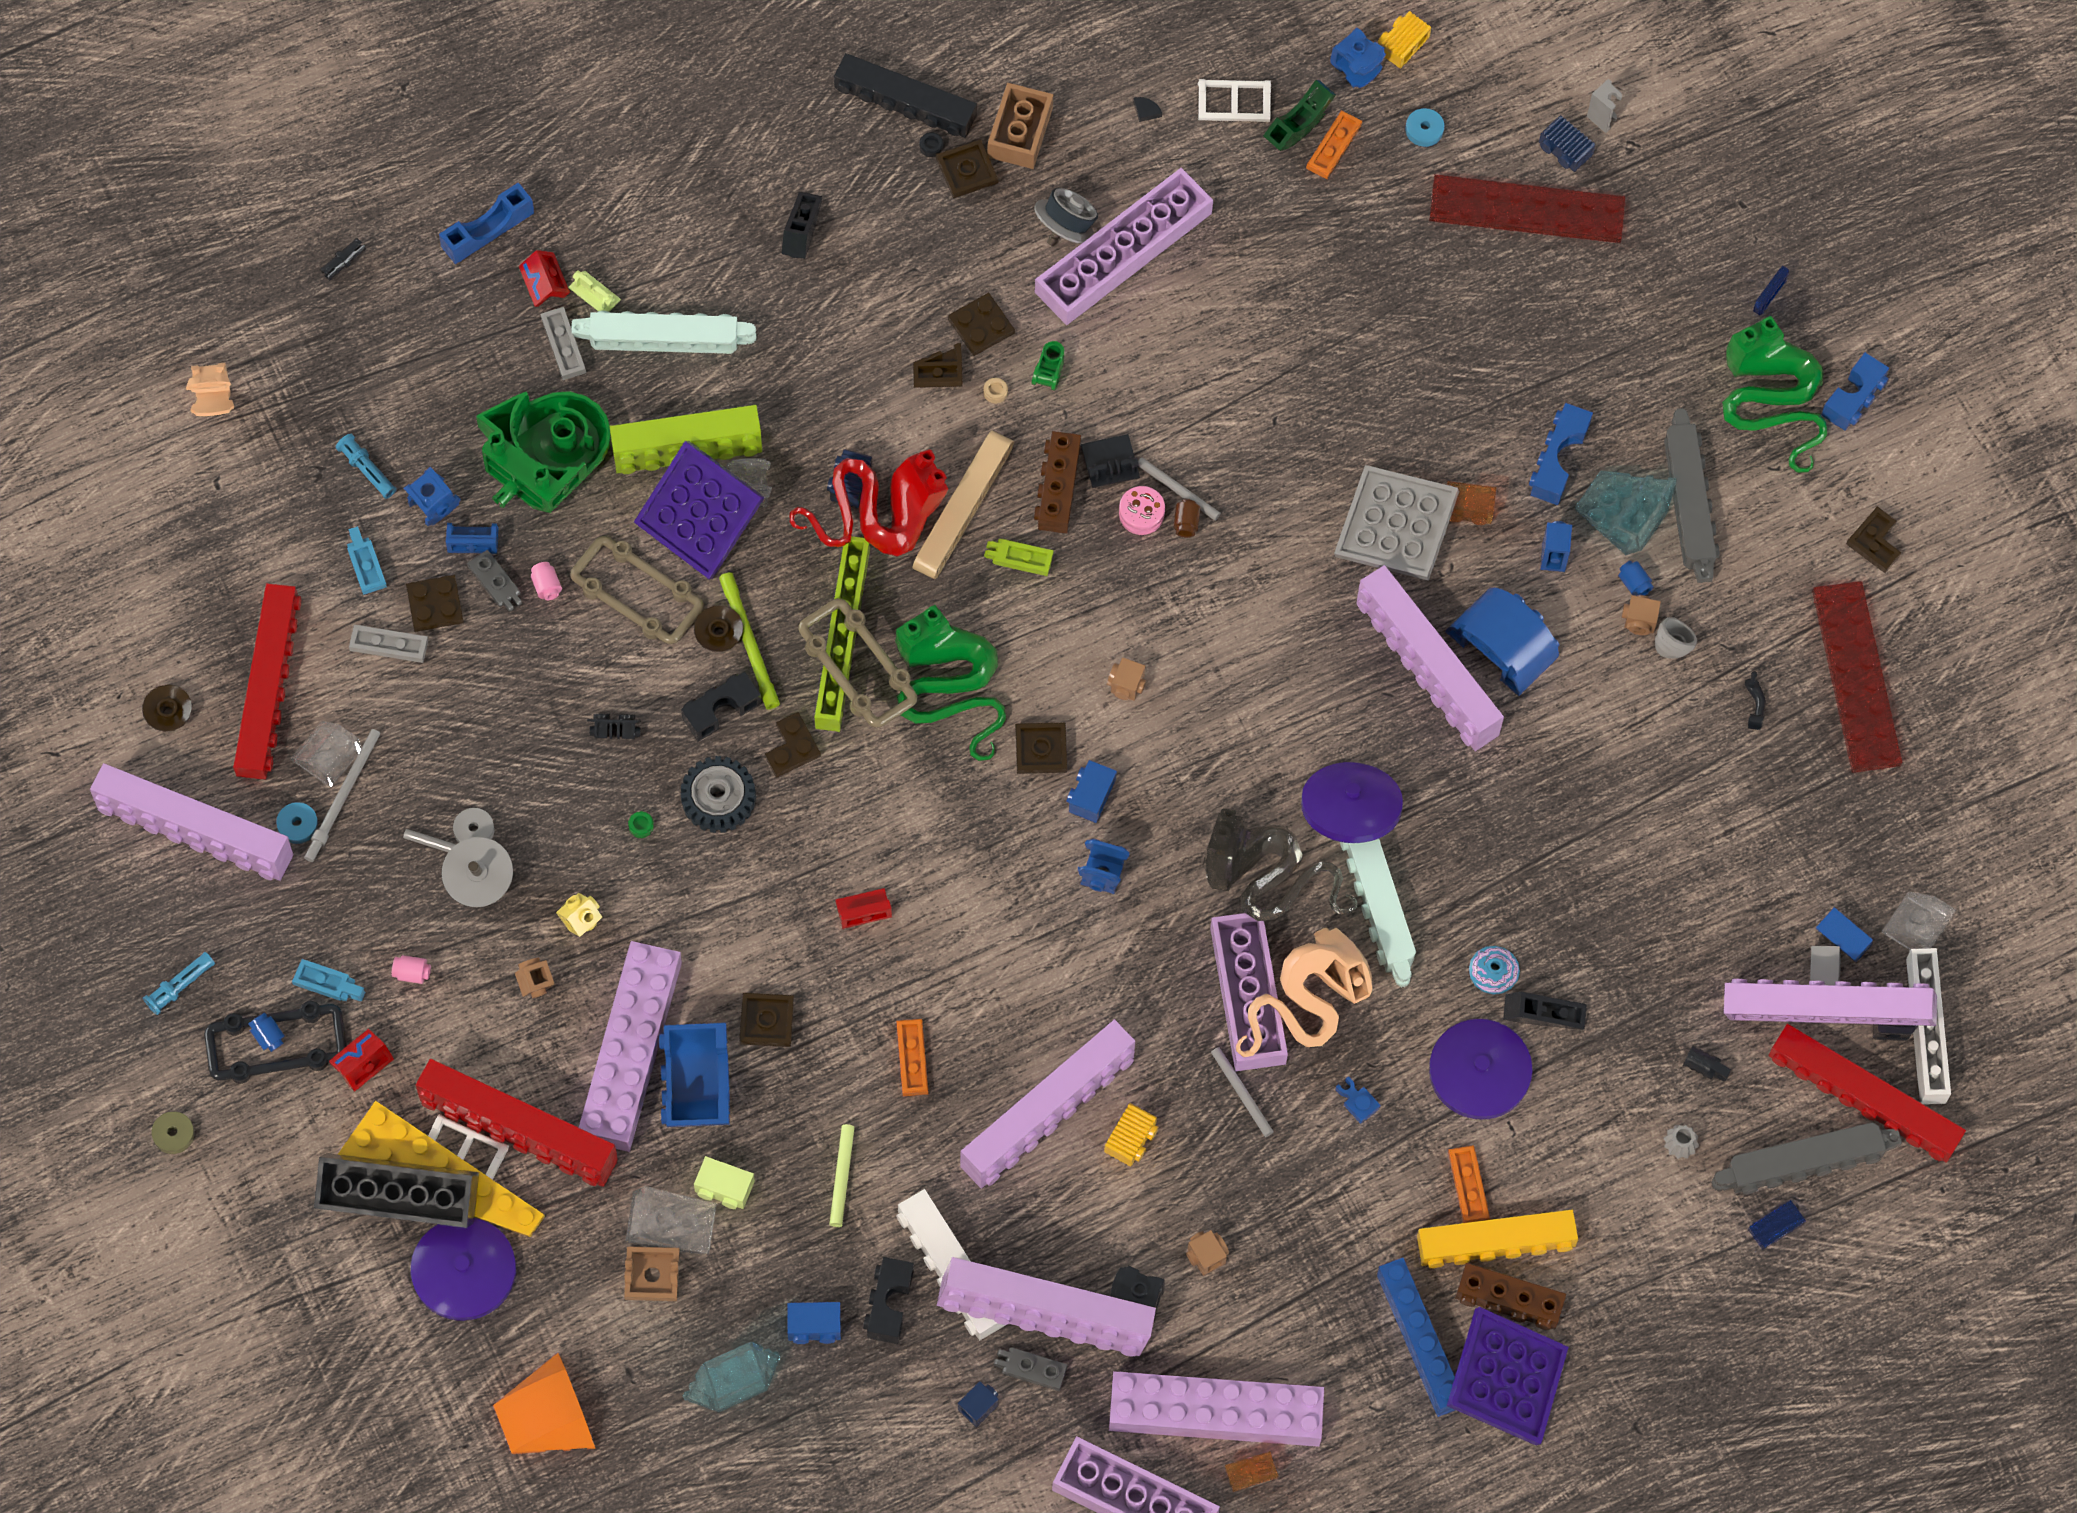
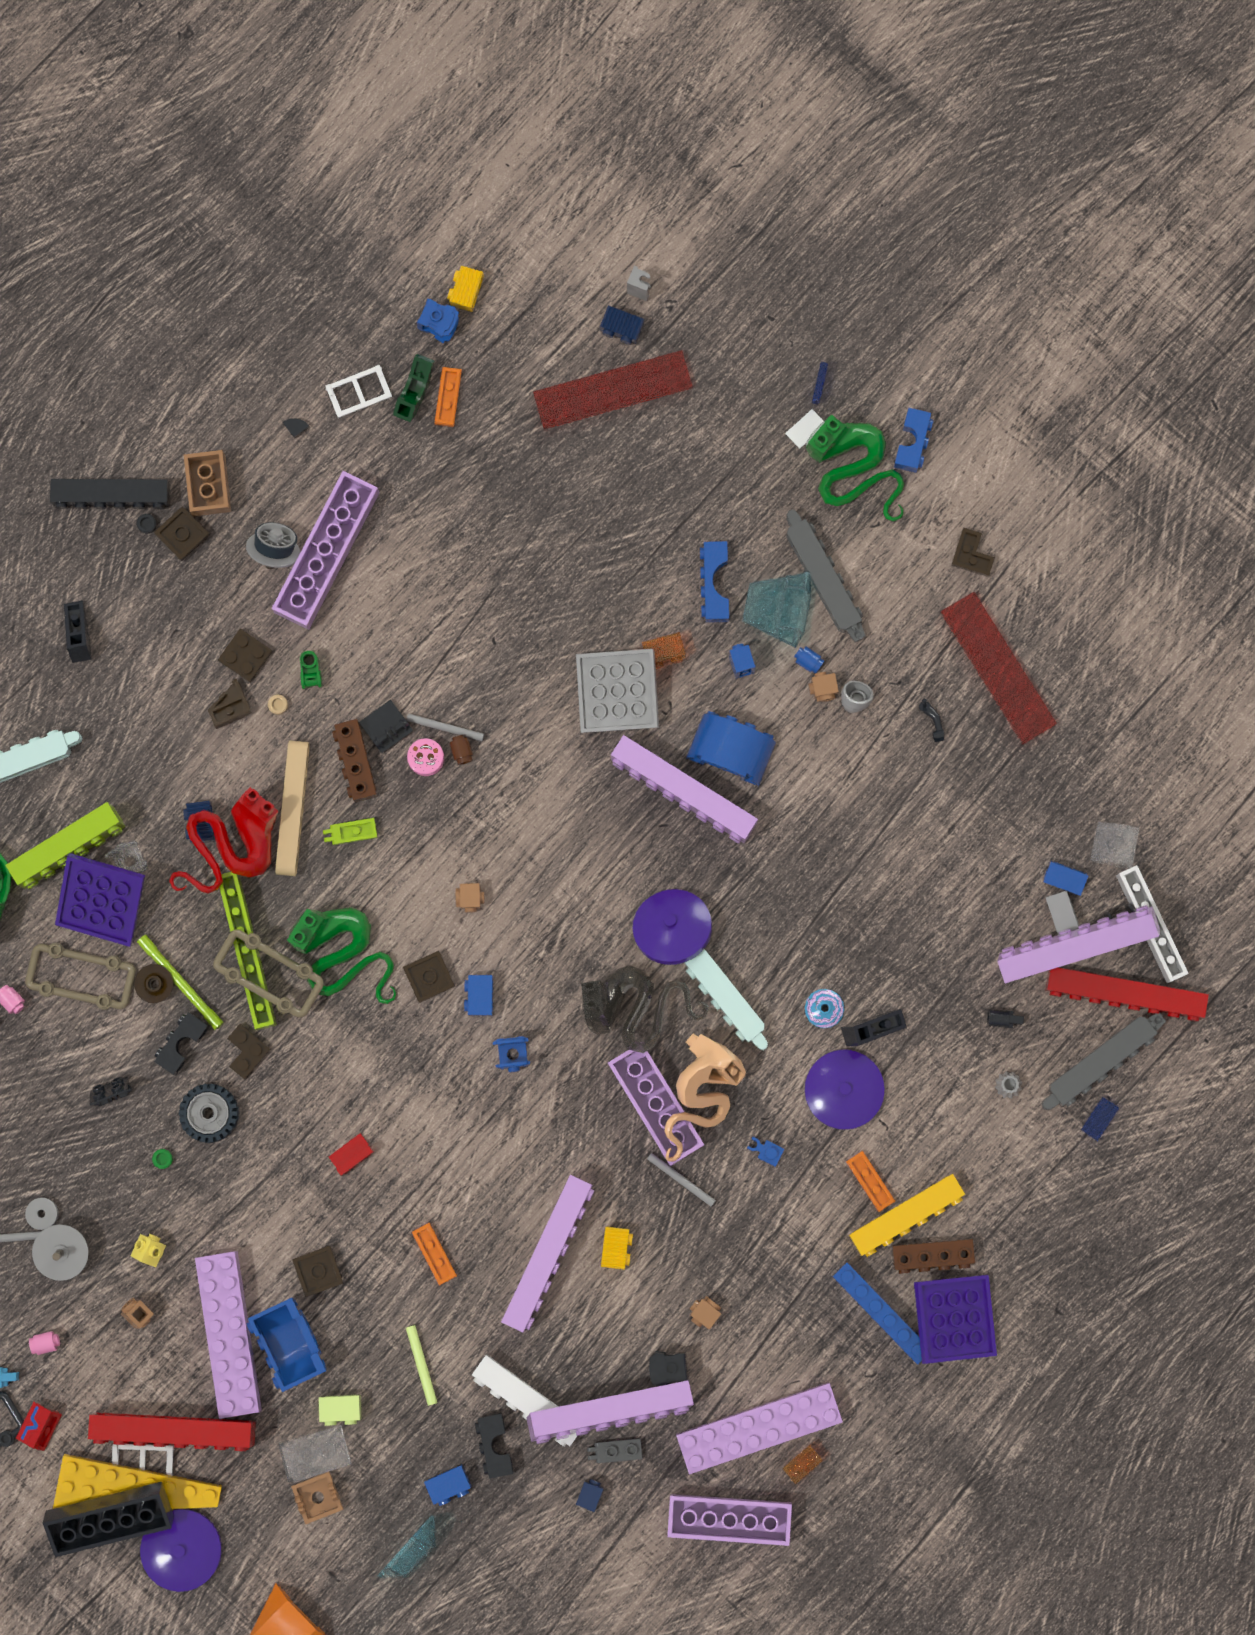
camera: 15 degrees left, 15 degrees up
(1427, 118) = (506, 346): dark azure piece -> none
(1722, 335) = (803, 428): none -> white sticker

